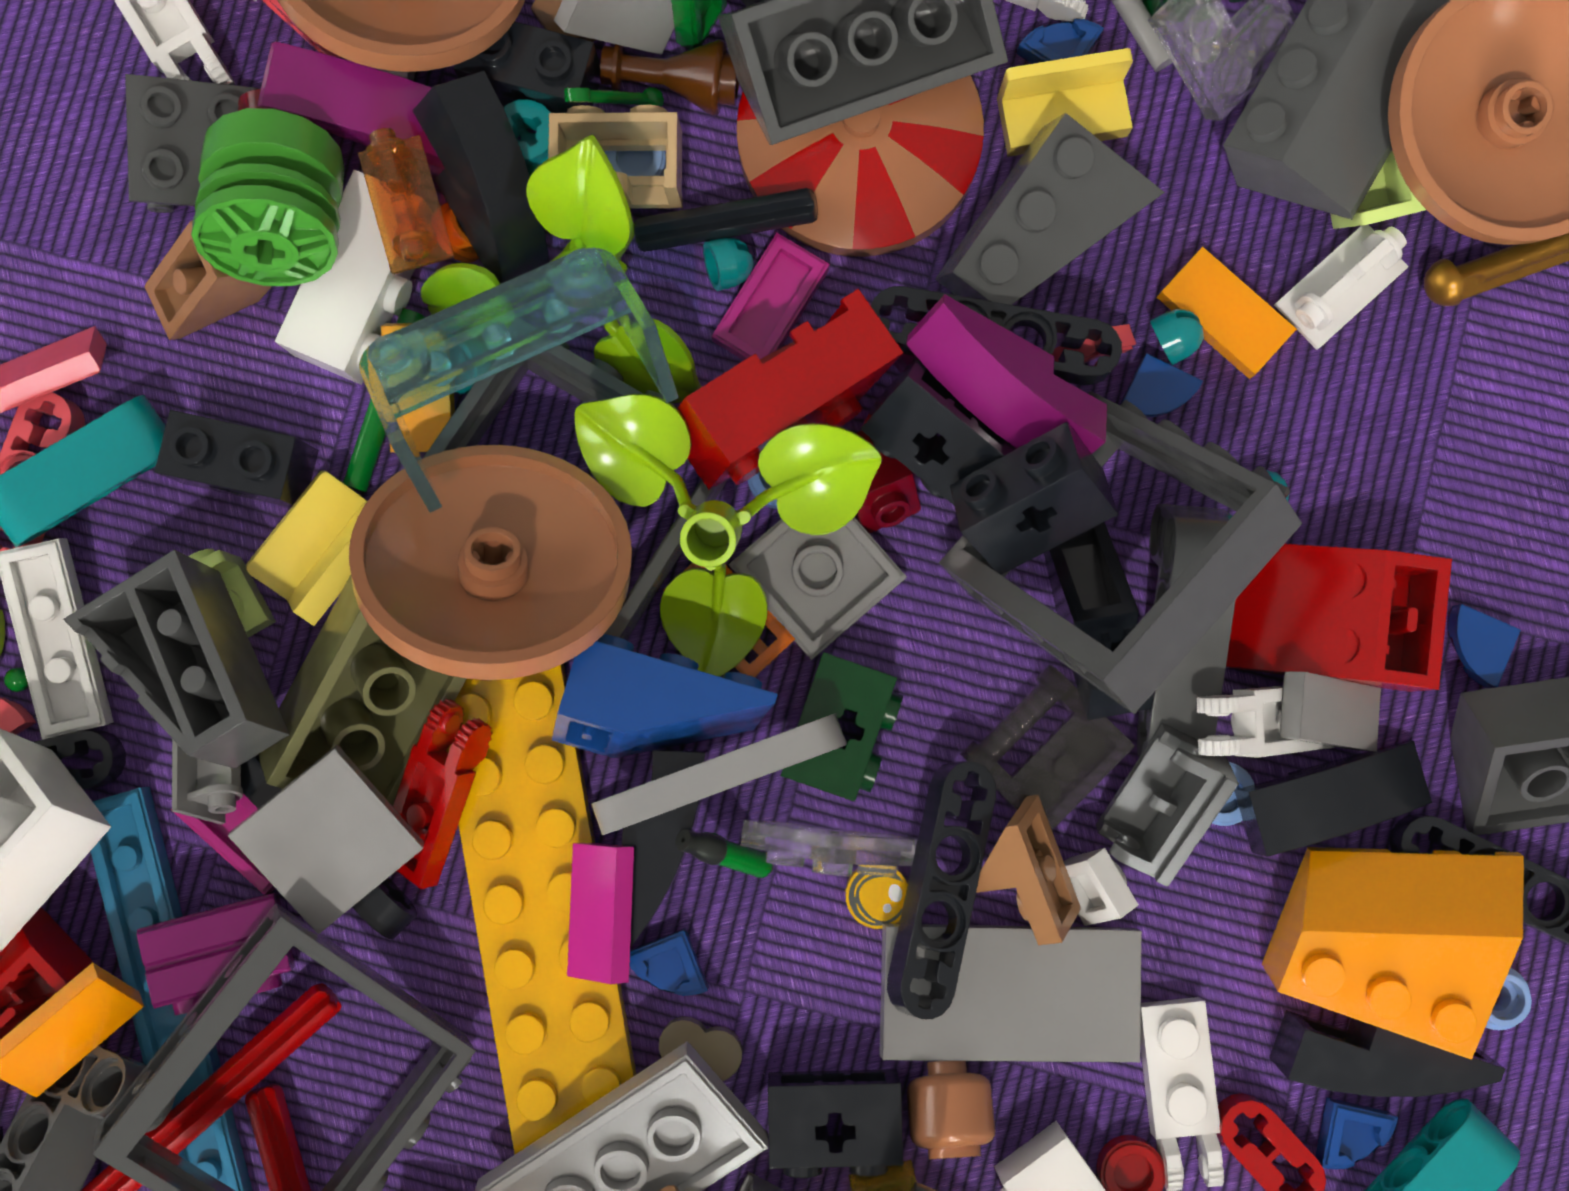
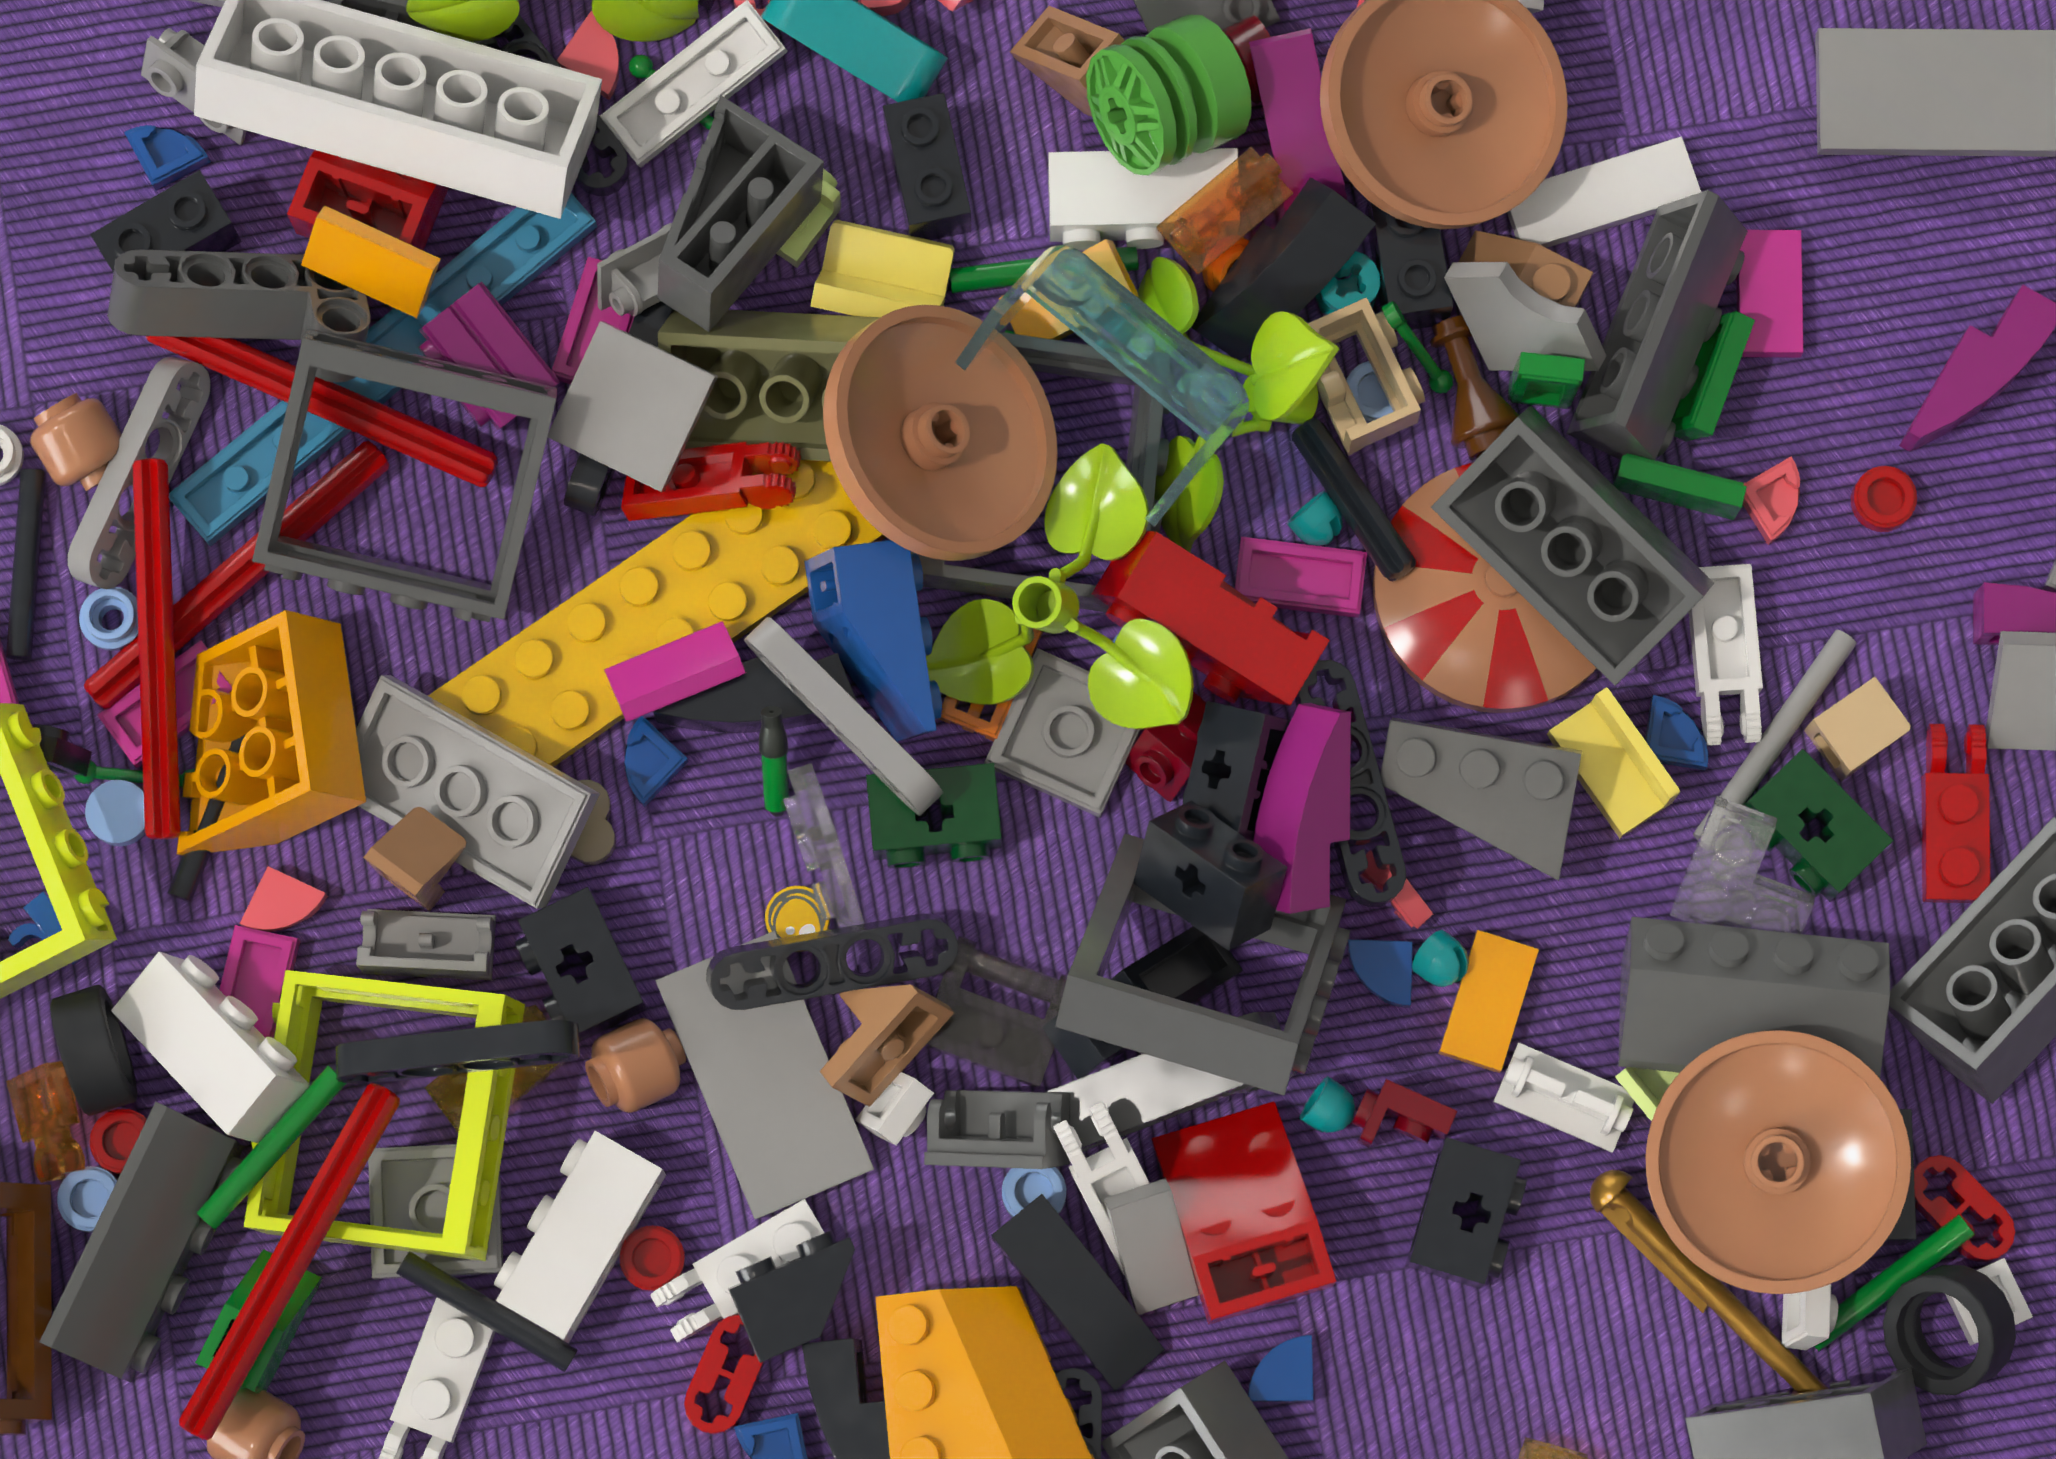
camera: 60 degrees right, 5 degrees down
(1244, 1073) = (791, 1301): none -> black slope
(1300, 427) = (1414, 1114): none -> dark red bracket
(1382, 411) = (1460, 1175): none -> black brick

